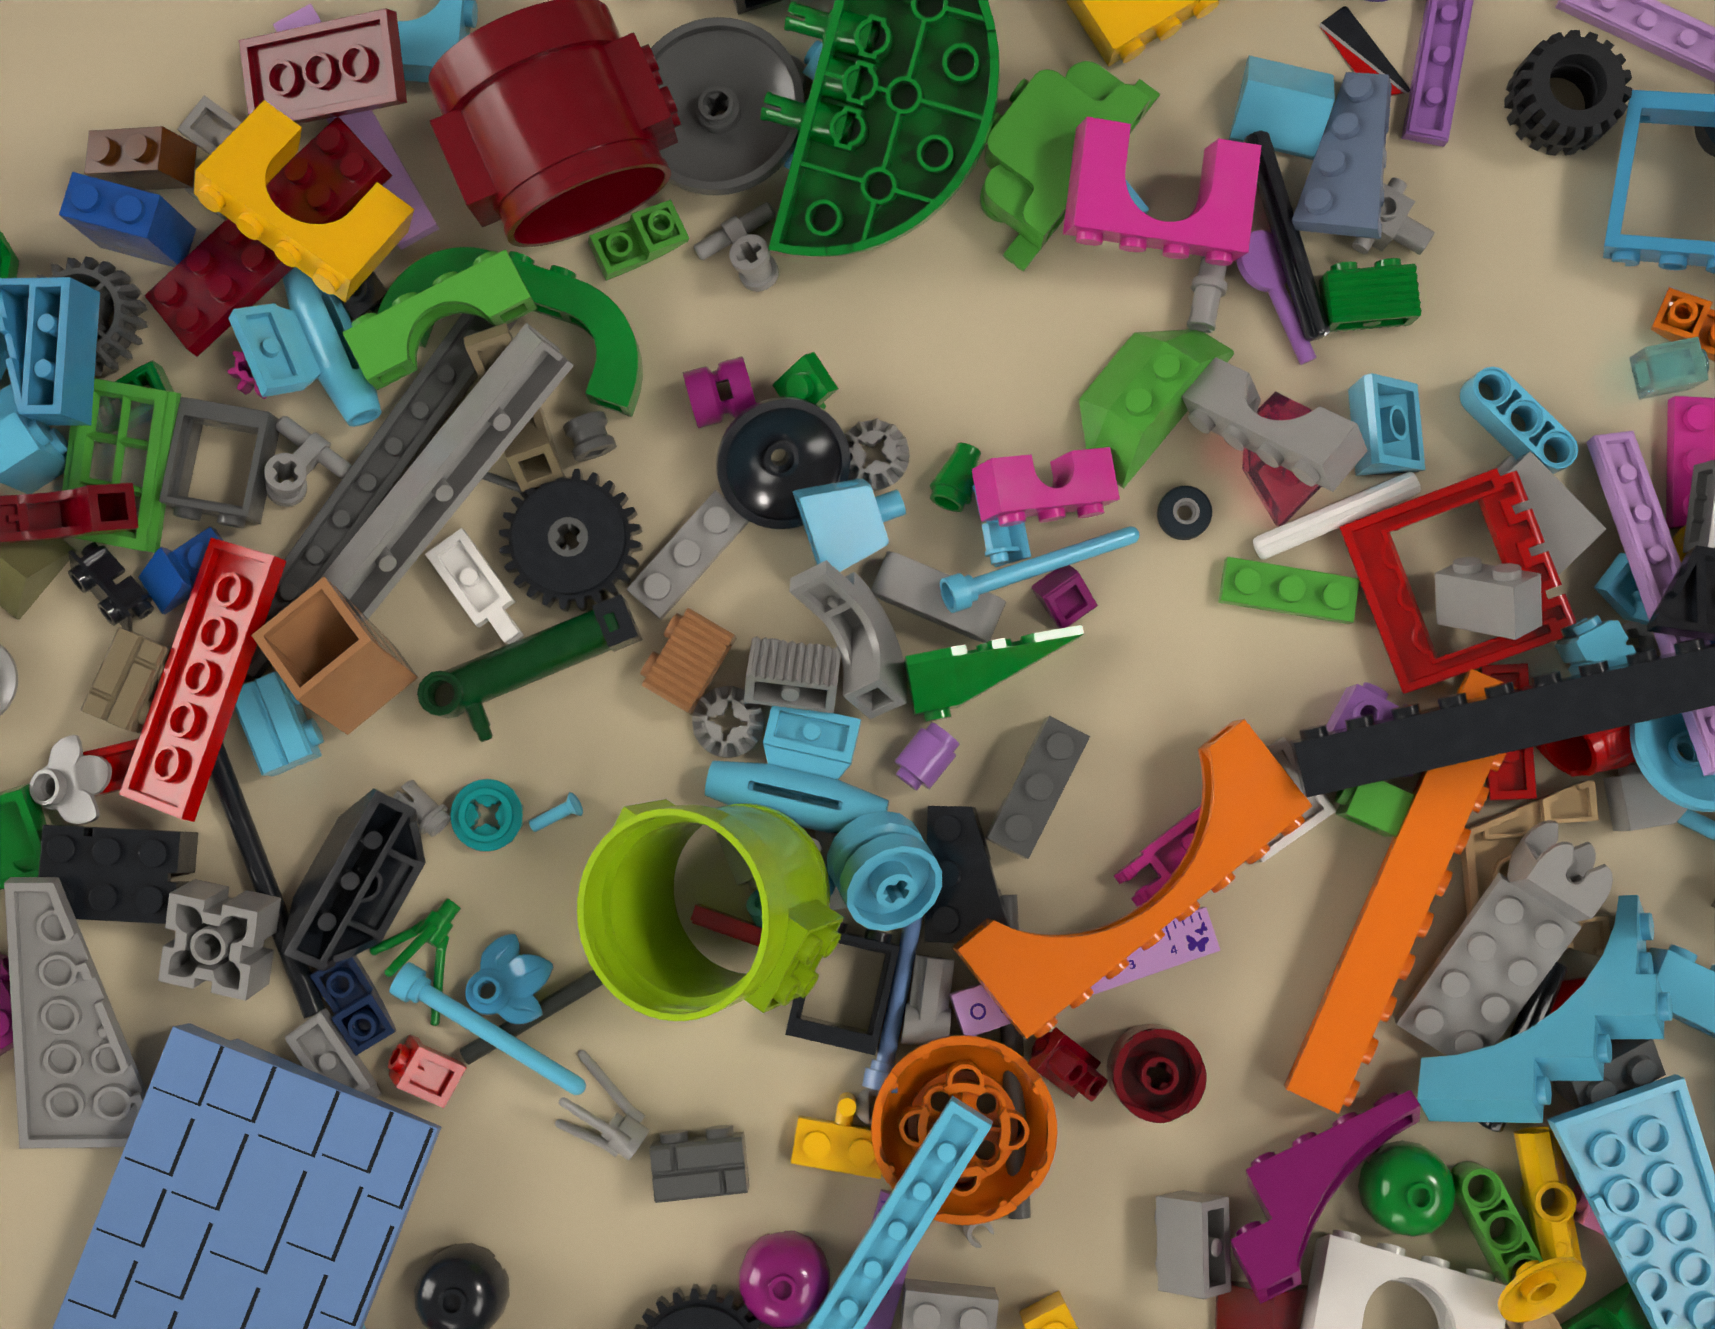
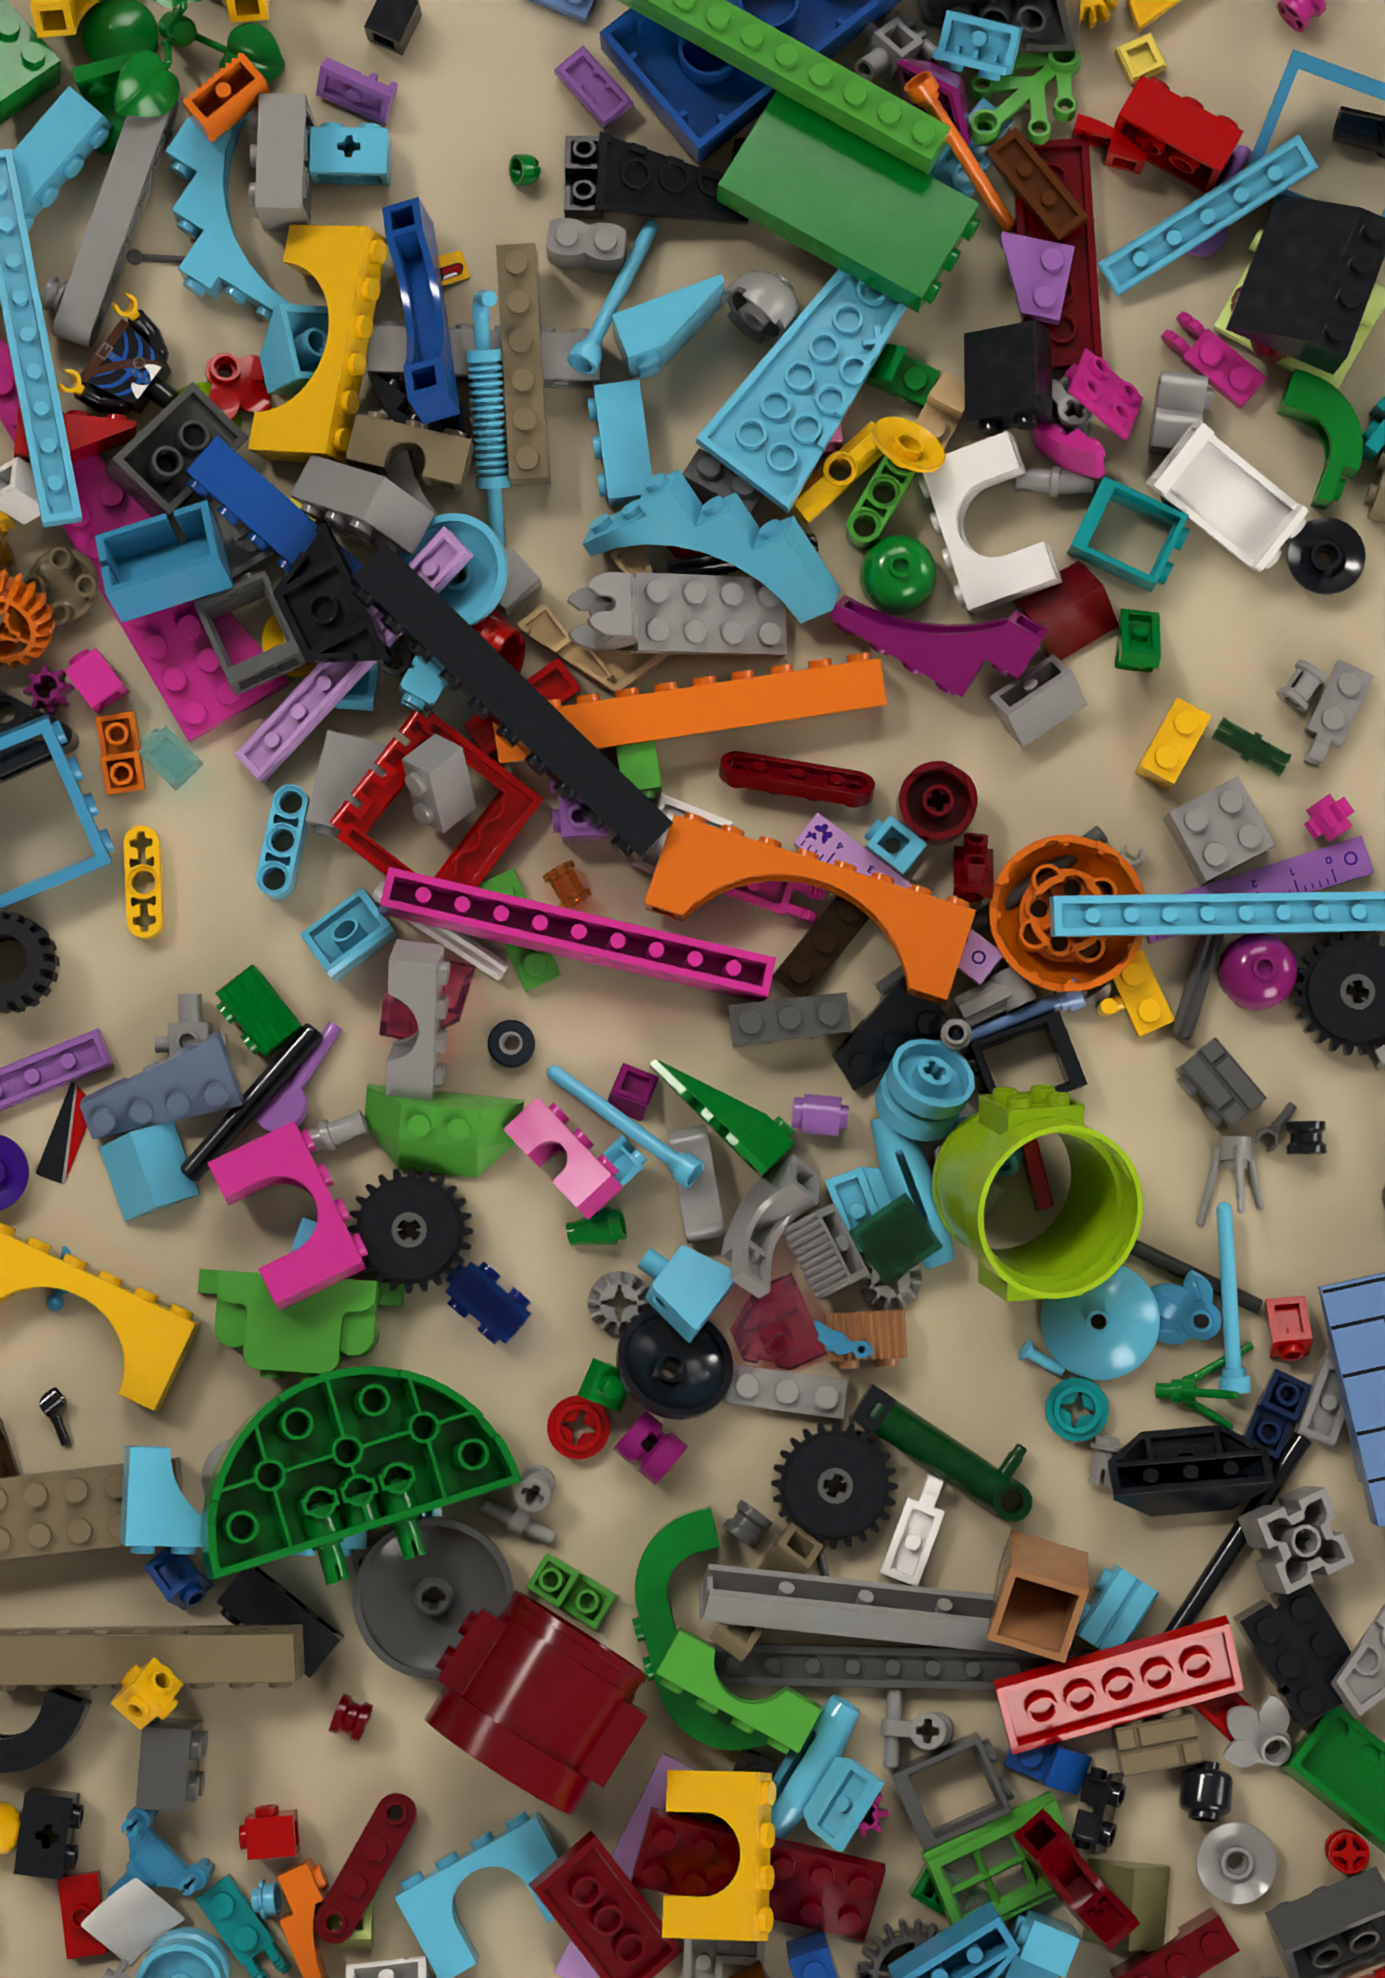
camera: 120 degrees left, 0 degrees up
(53, 695) = (1205, 1792): none -> black head
(515, 898) = (1116, 1348): none -> medium azure dish
(592, 1214) = (1306, 1137): none -> black wheel
(623, 1191) = (1276, 1126): none -> dark grey hand
(696, 628) = (838, 1342): none -> dark azure piece
(752, 583) = (777, 1327): none -> clear pink slope
(760, 749) = (895, 1238): none -> clear green piece
(786, 322) = (562, 1437): none -> red gear
(810, 1208) = (1196, 986): none -> dark grey axle
(926, 933) = (948, 1030): none -> light grey pin
(956, 330) = (476, 1292): none -> clear blue brick
(1067, 335) = (411, 1201): none -> black gear
(1086, 866) = (820, 947): none -> dark brown plate
(1157, 1010) = (909, 844): none -> medium azure brick
(1255, 632) = (576, 935): none -> dark pink brick
(1266, 951) = (796, 778): none -> dark red plate
(1304, 661) = (567, 885): none -> clear orange bush
(1579, 265) = (151, 853): none -> yellow beam

